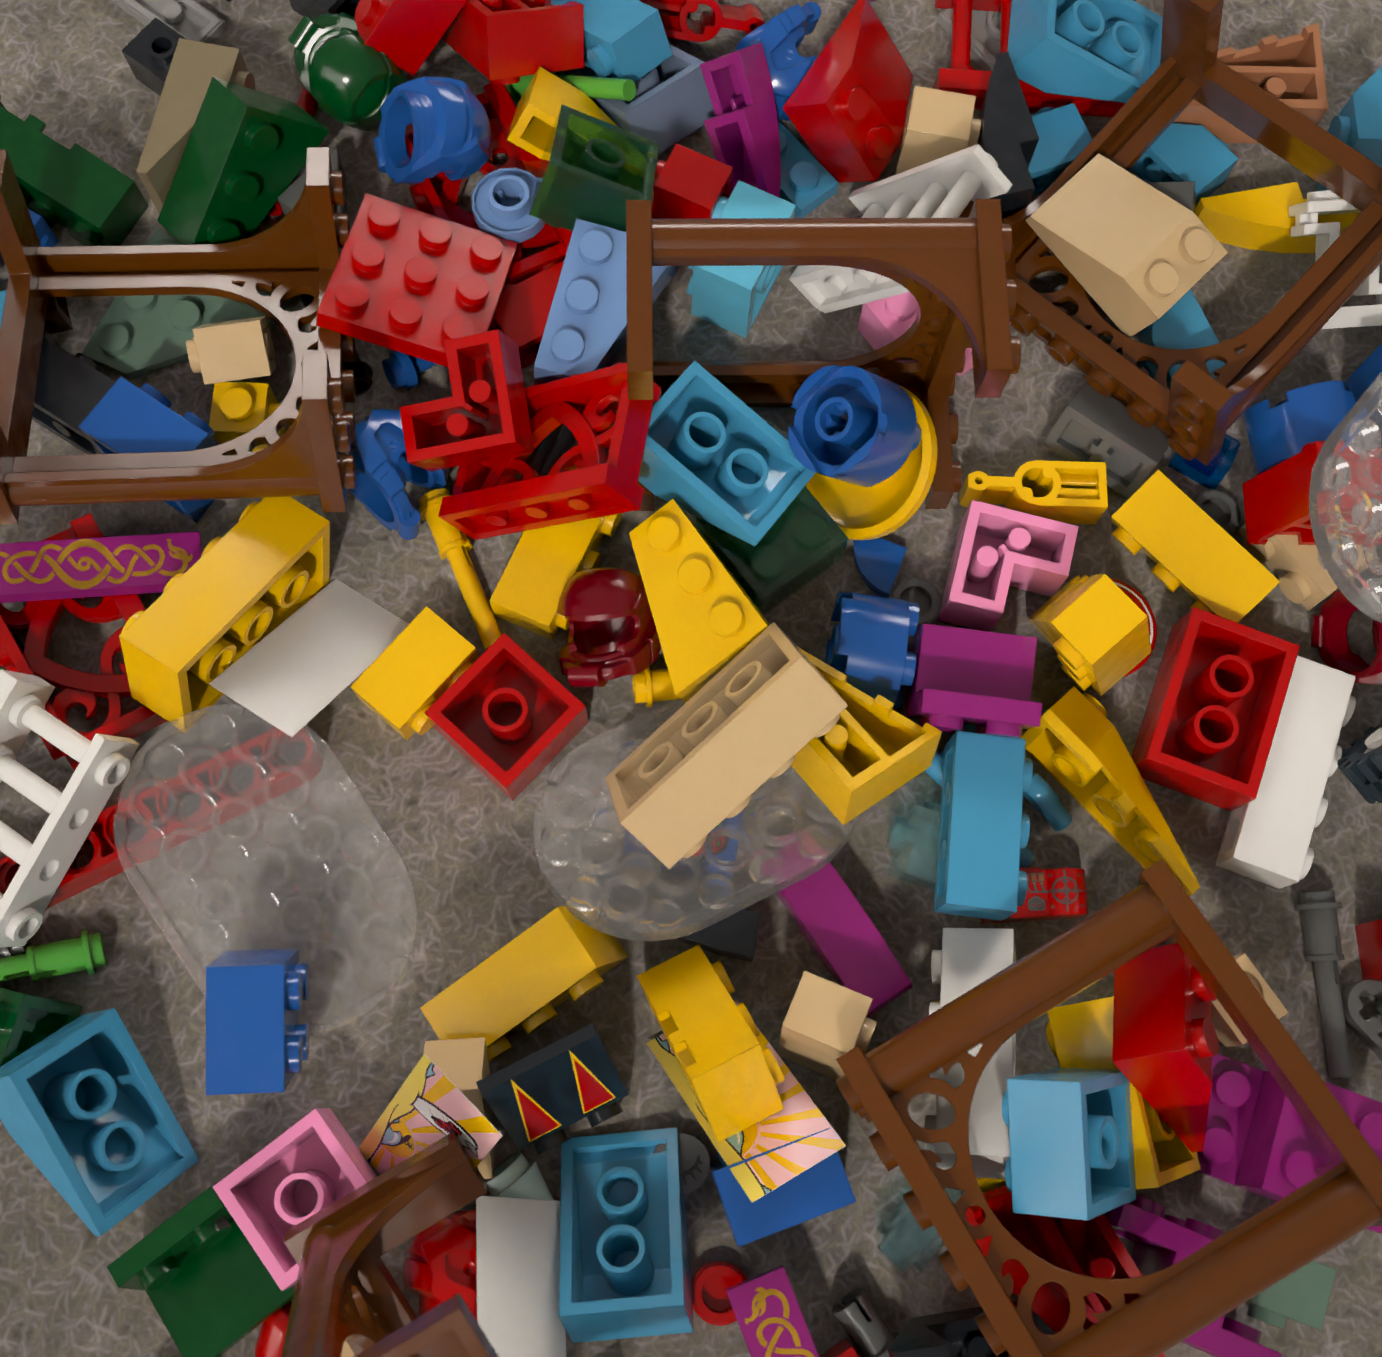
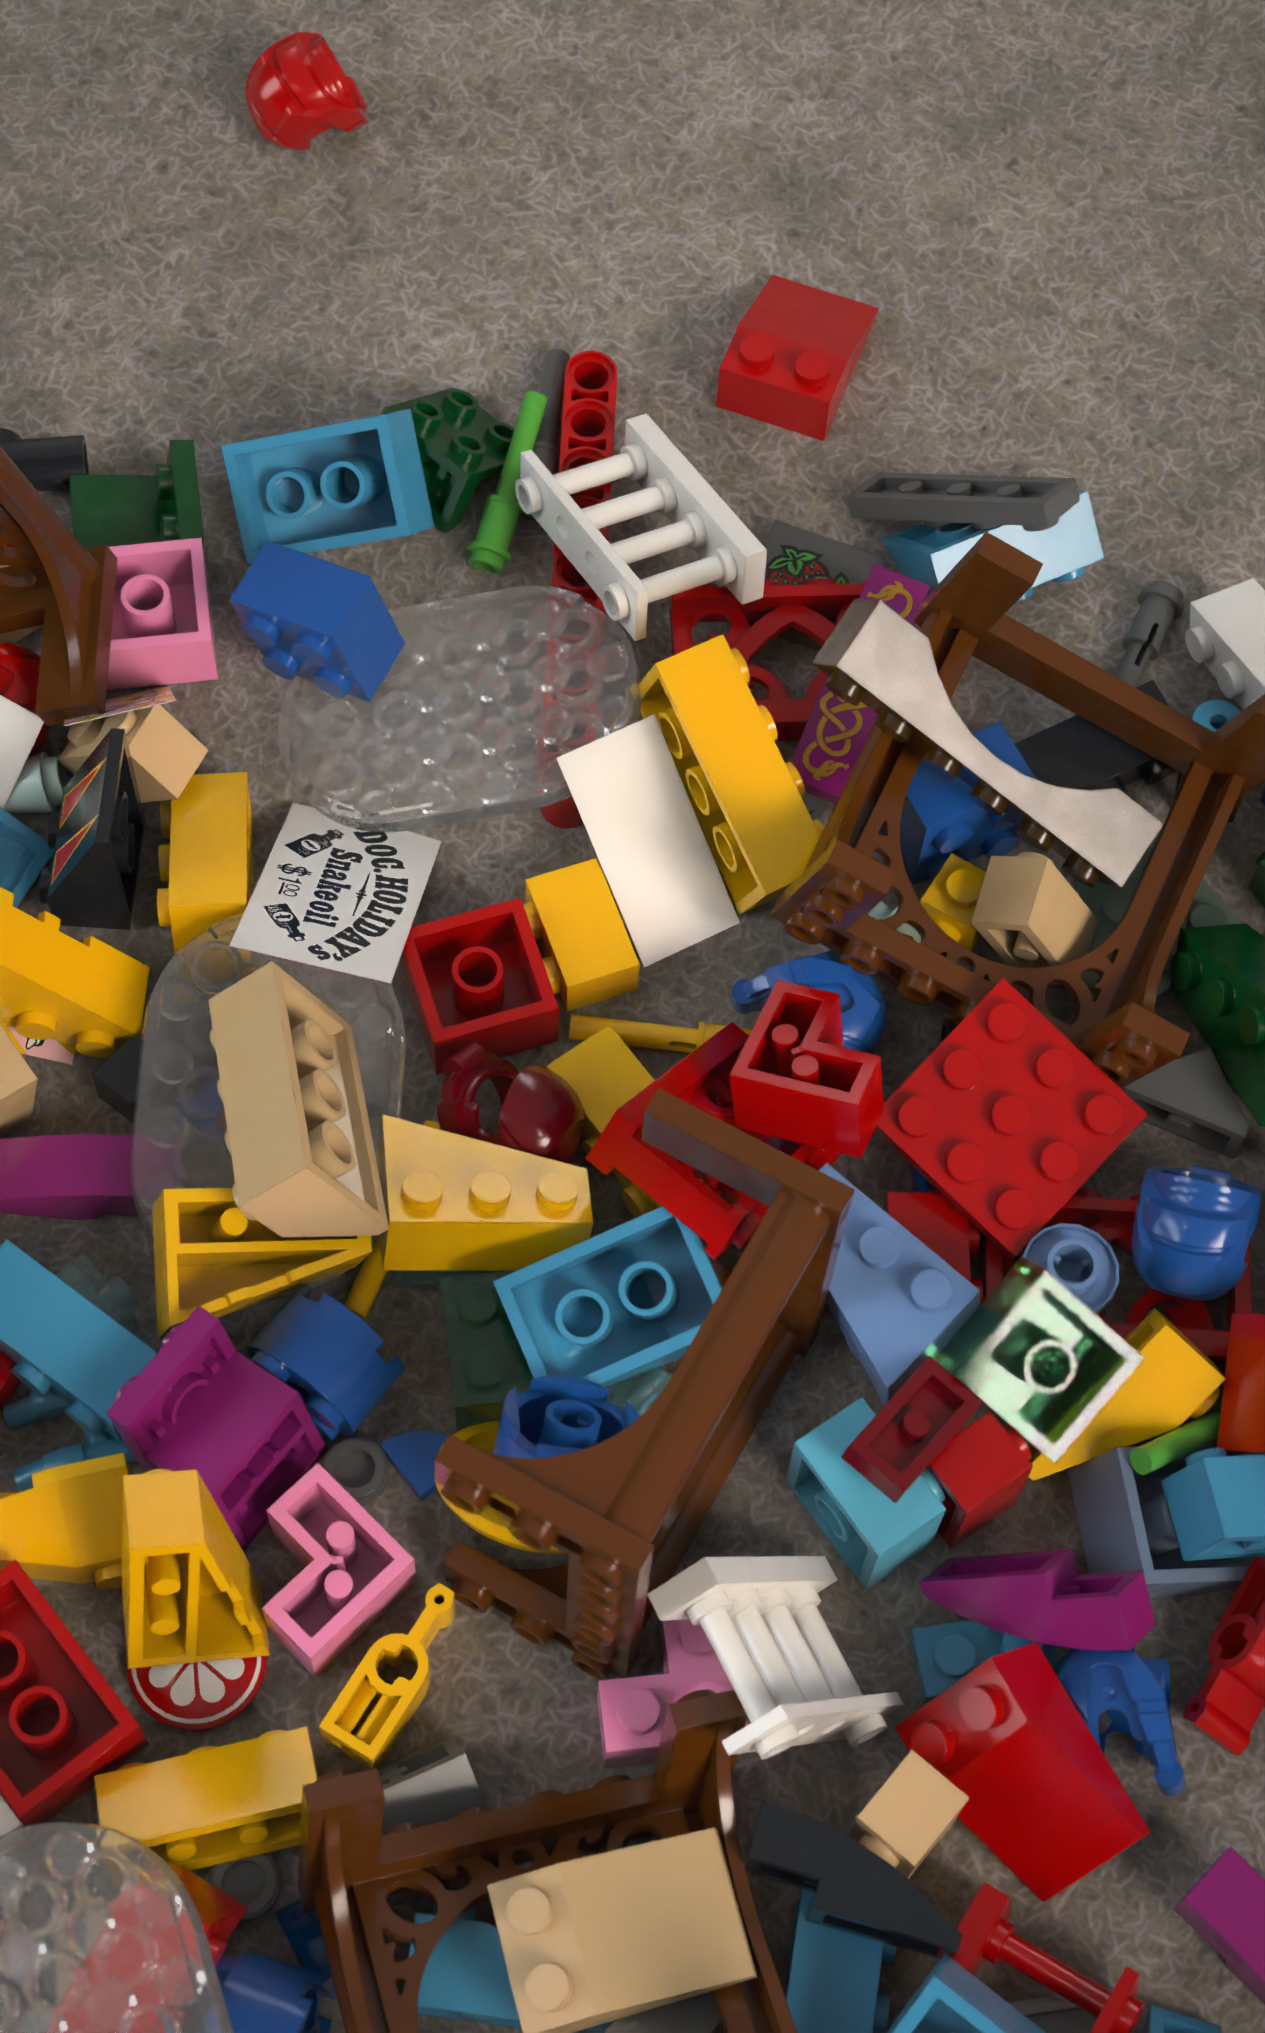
camera: 120 degrees right, 10 degrees down
(106, 456) = (893, 671): none -> arch
(503, 854) = (337, 896): none -> white sticker
(705, 201) = (912, 1429): none -> dark red plate

